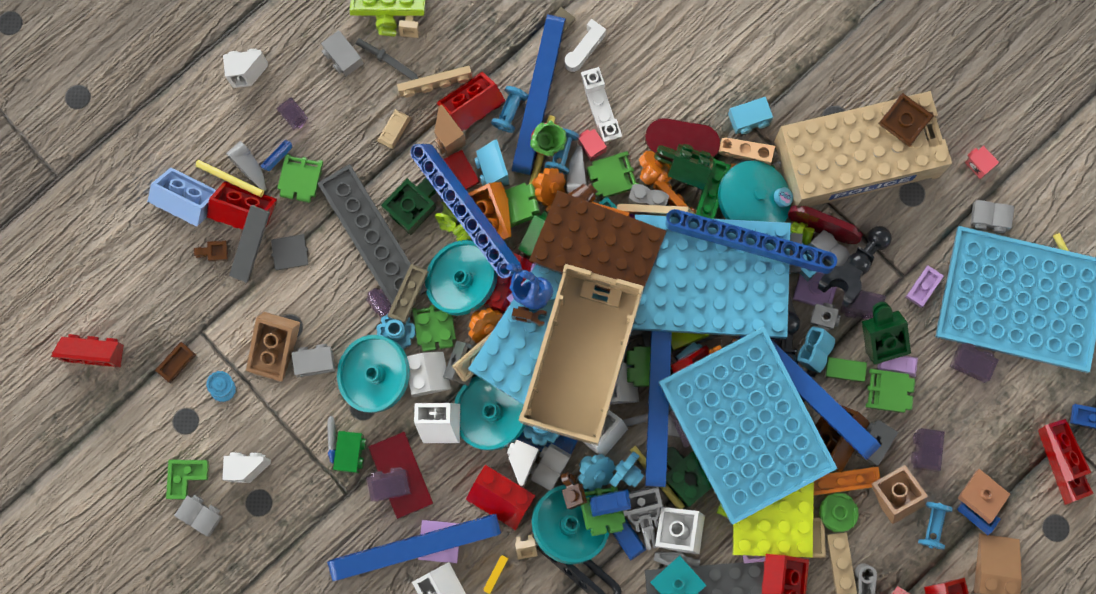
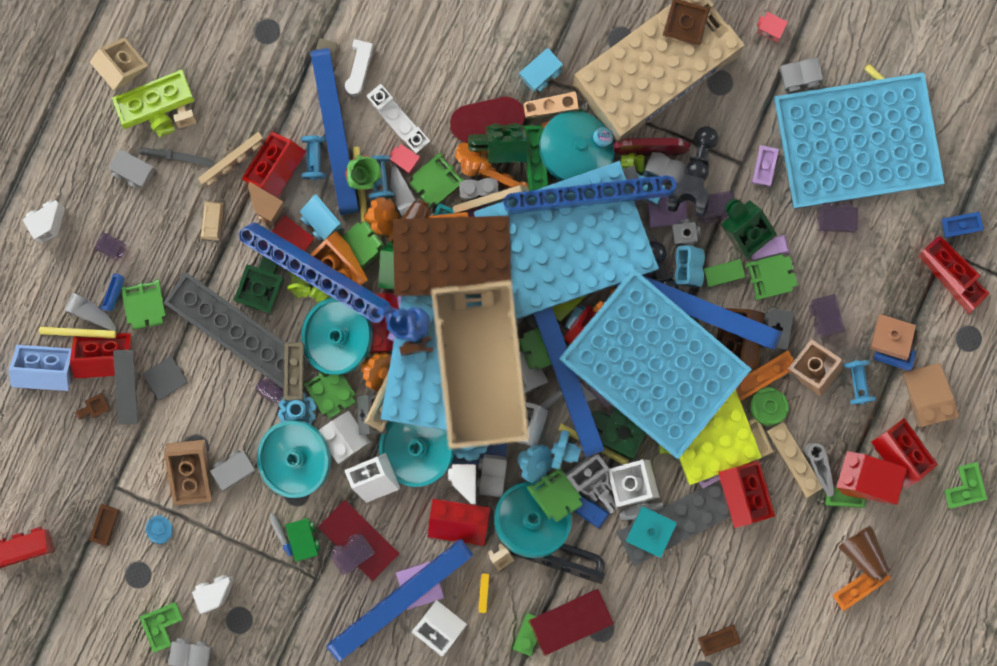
camera: 25 degrees left, 5 degrees up
(574, 493) = (523, 491): reddish brown plate -> none
(610, 503) = (560, 485): blue tile -> none

